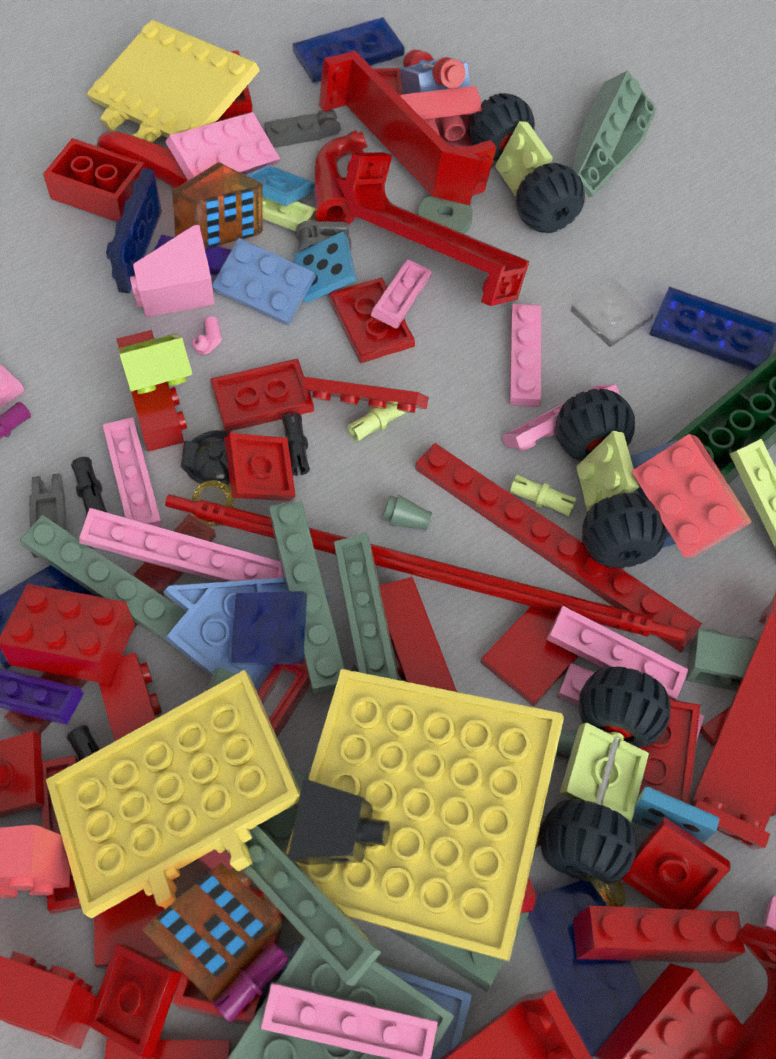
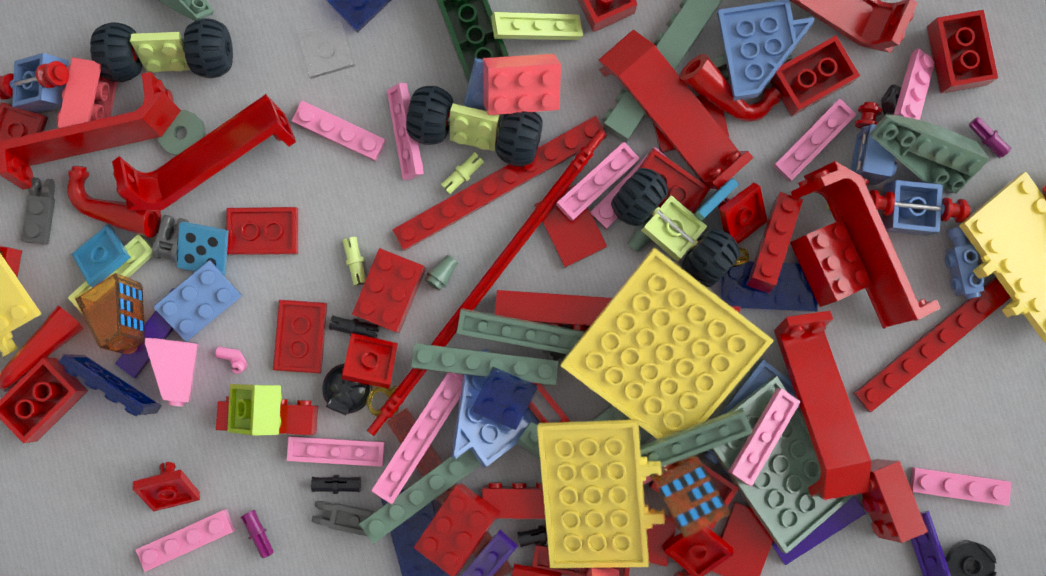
camera: 60 degrees left, 25 degrees up
(30, 316) = (167, 489): none -> red tile
(233, 142) = (52, 288): bright pink plate -> none
(250, 982) = (721, 481): magenta axle -> none
(334, 826) = (660, 407): black torso -> none
(357, 462) = (389, 290): none -> red brick
(377, 396) = (333, 270): red plate -> none
(401, 293) = (250, 199): bright pink tile -> none

